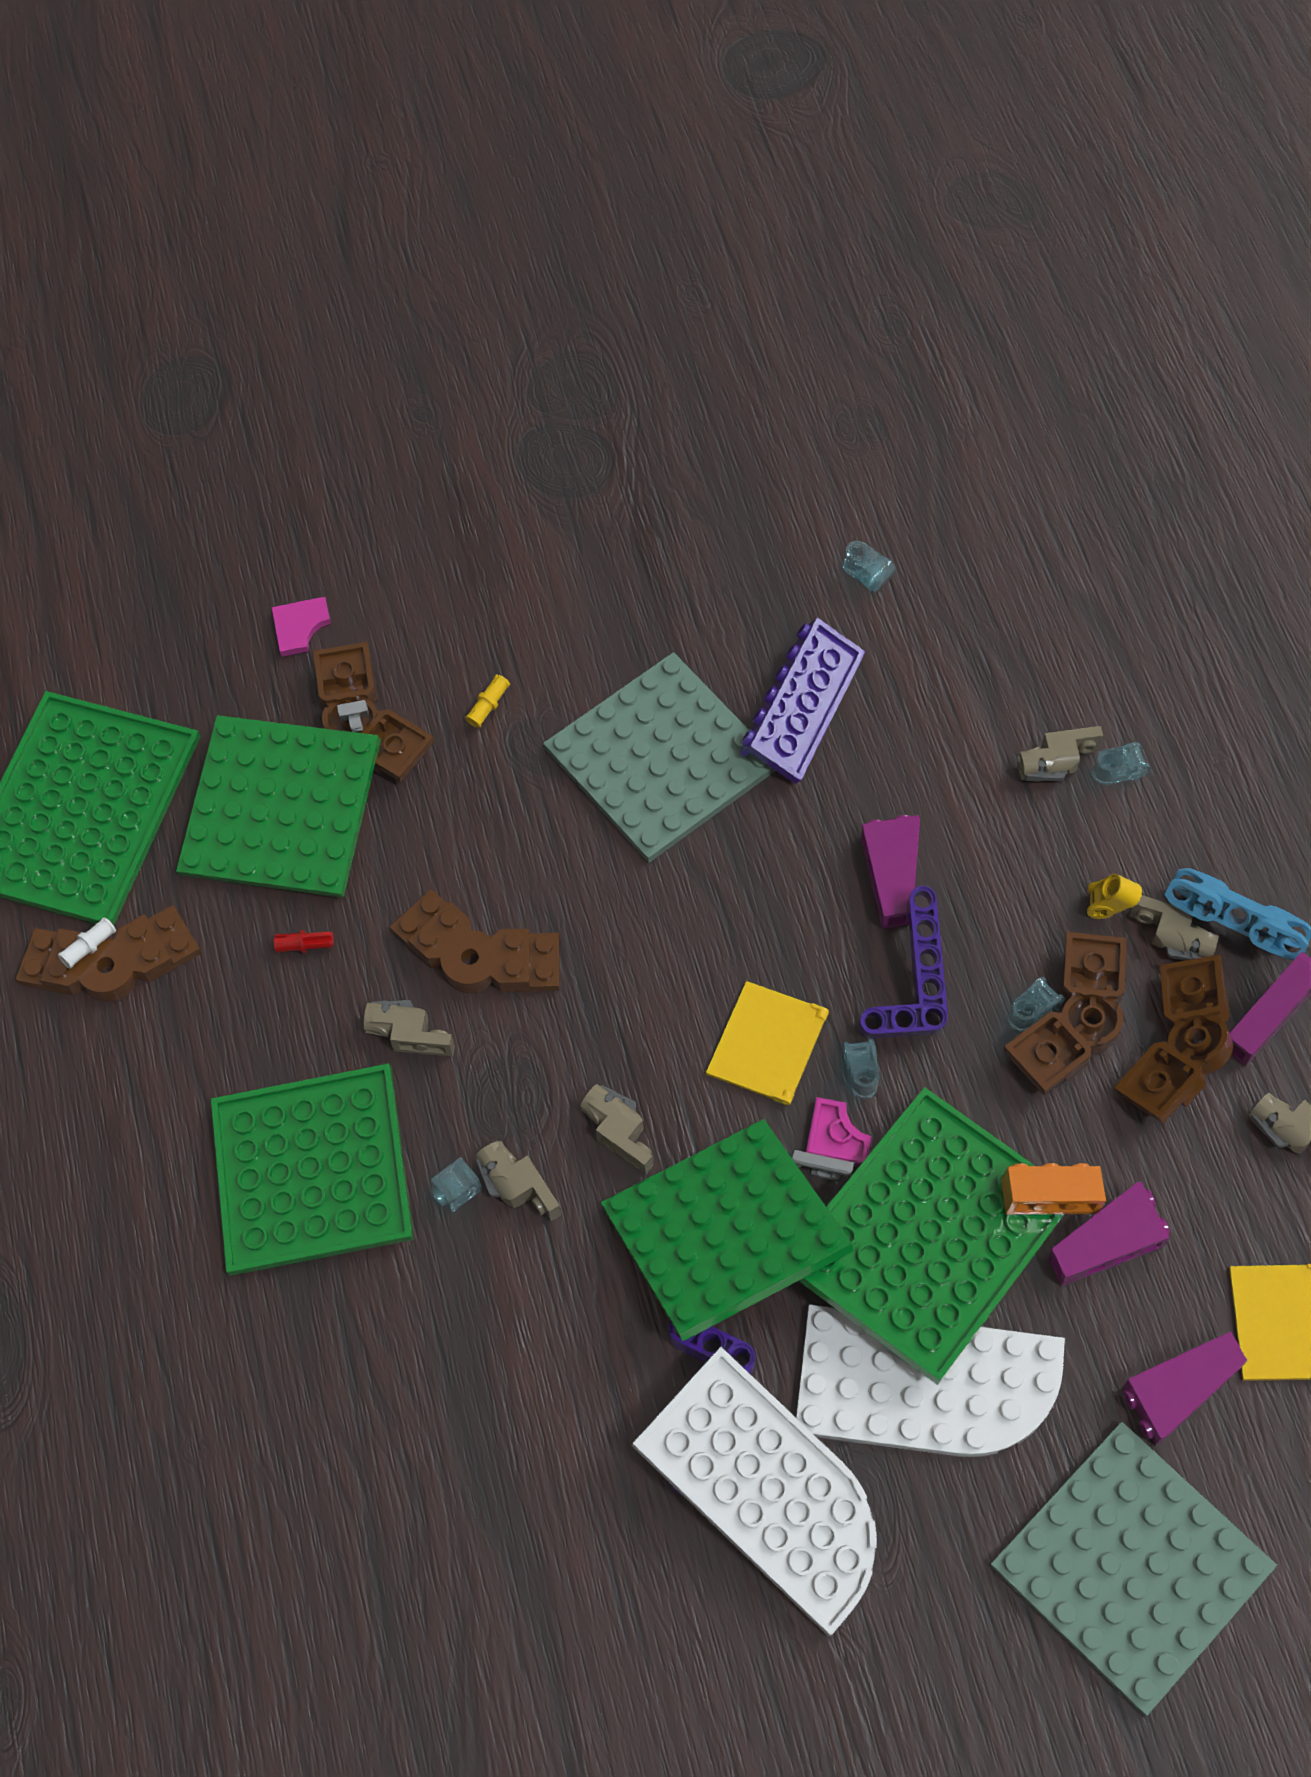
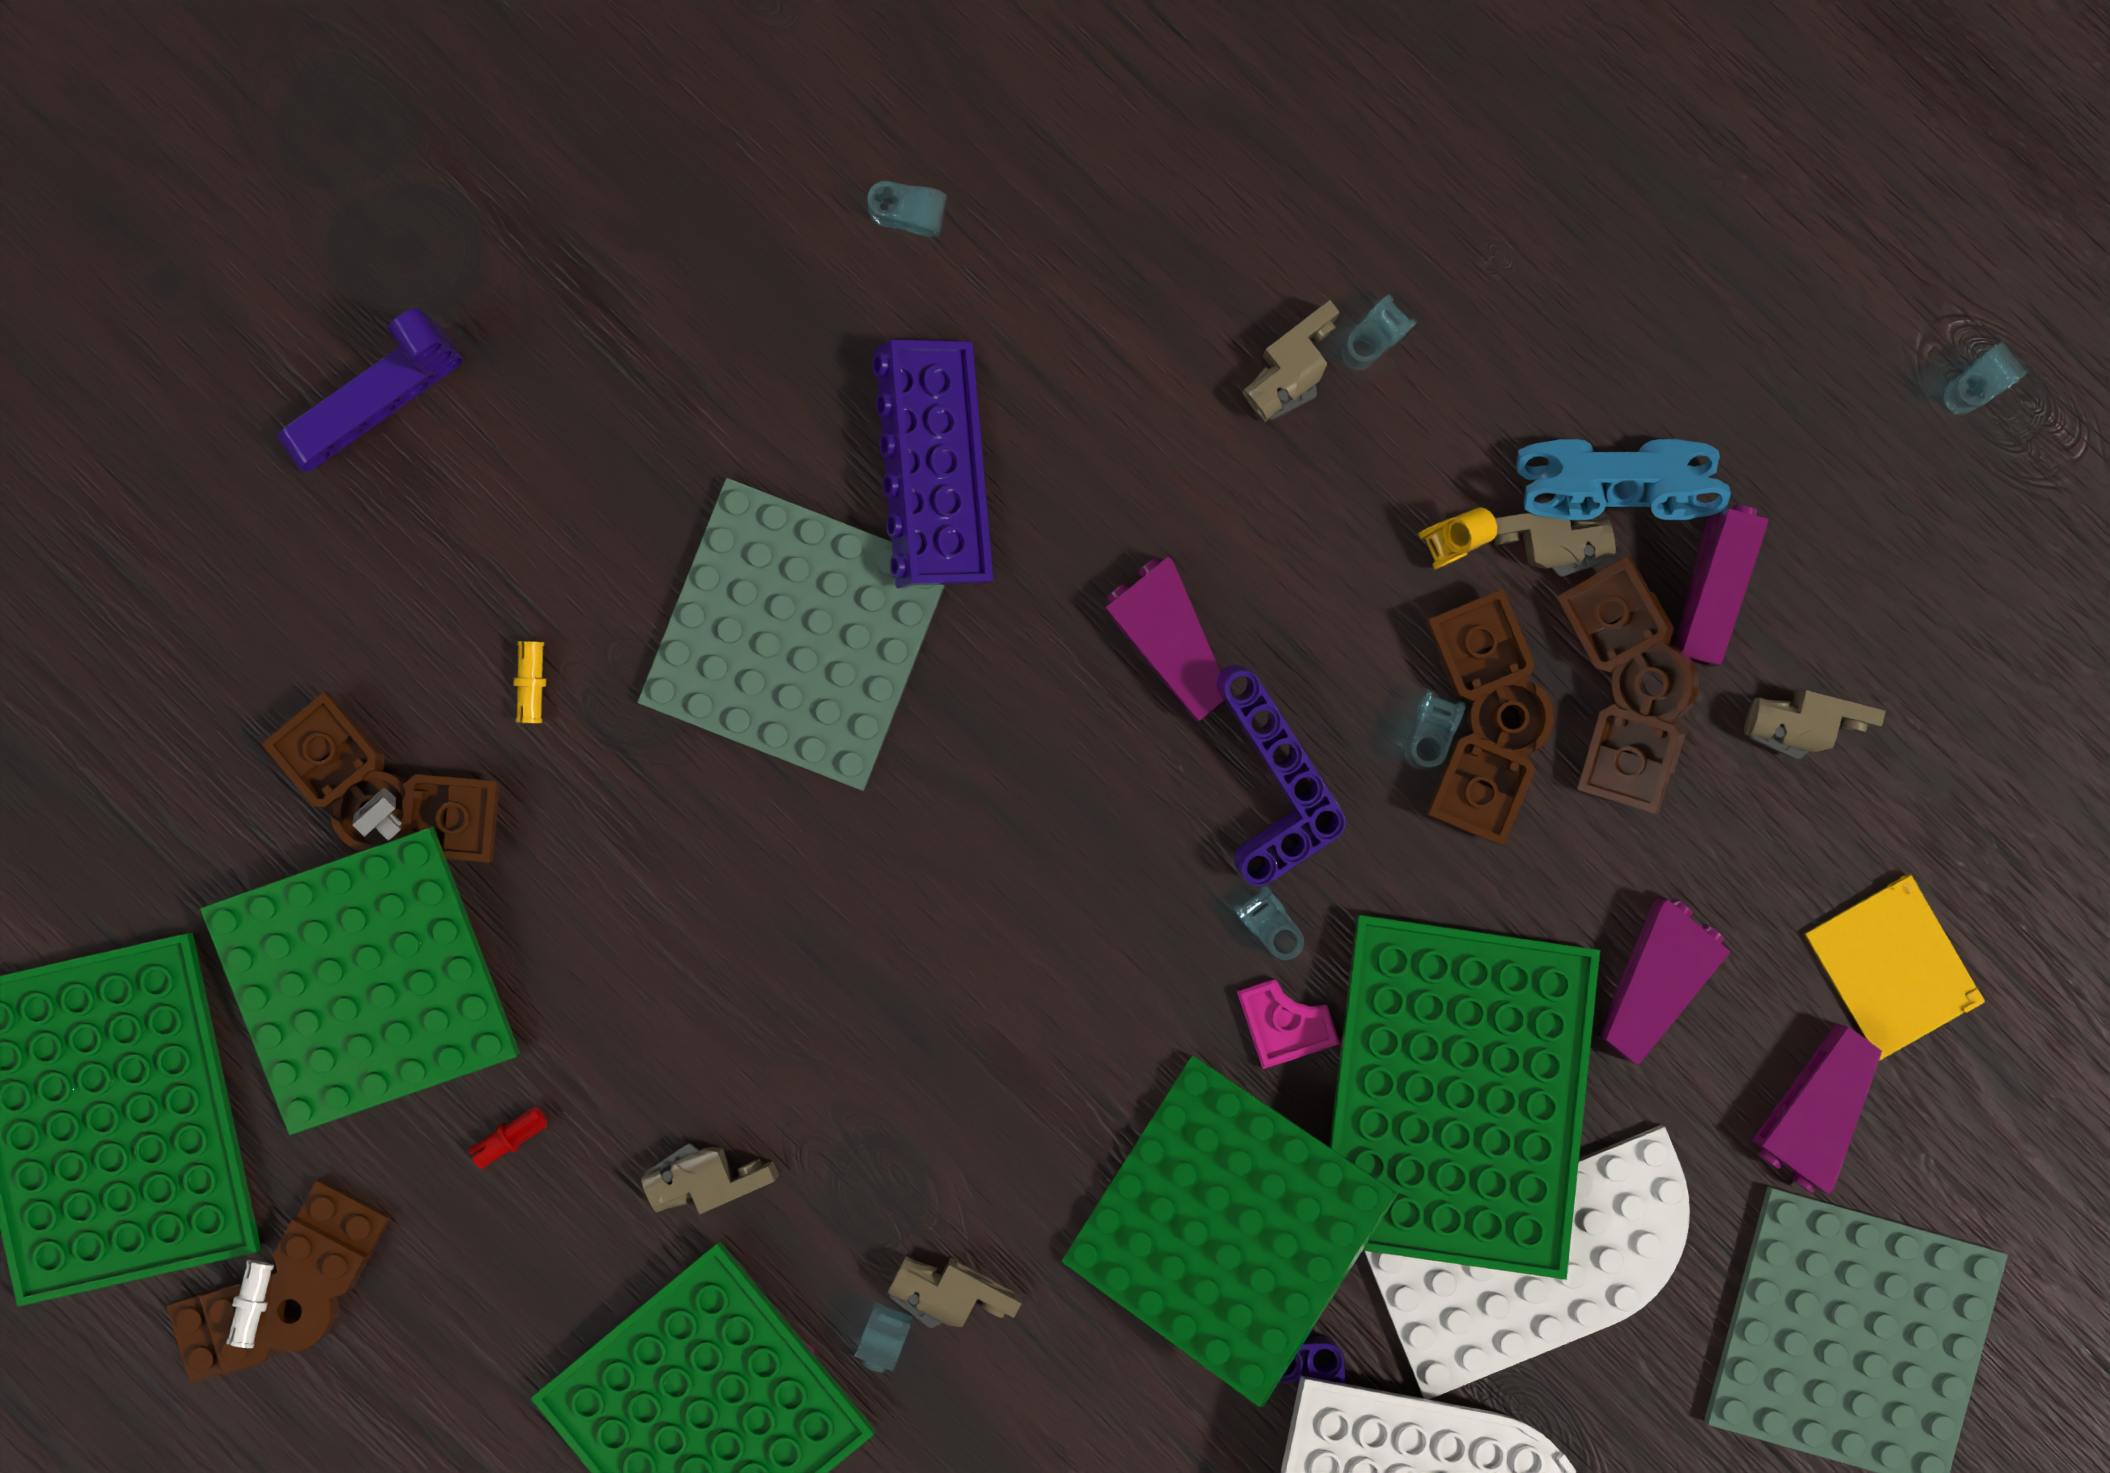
camera: 30 degrees left, 25 degrees up
(298, 622) = (210, 702): dark pink tile -> none
(503, 514) = (418, 363): none -> dark purple beam
(508, 959) = (678, 1036): reddish brown plate -> none
(618, 1125) = (1030, 1157): dark tan plate -> none
(767, 1043) = (1141, 951): yellow piece -> none
(823, 1166) = (1293, 1077): light grey tile -> none
(1053, 1189) = (1574, 968): orange brick -> none

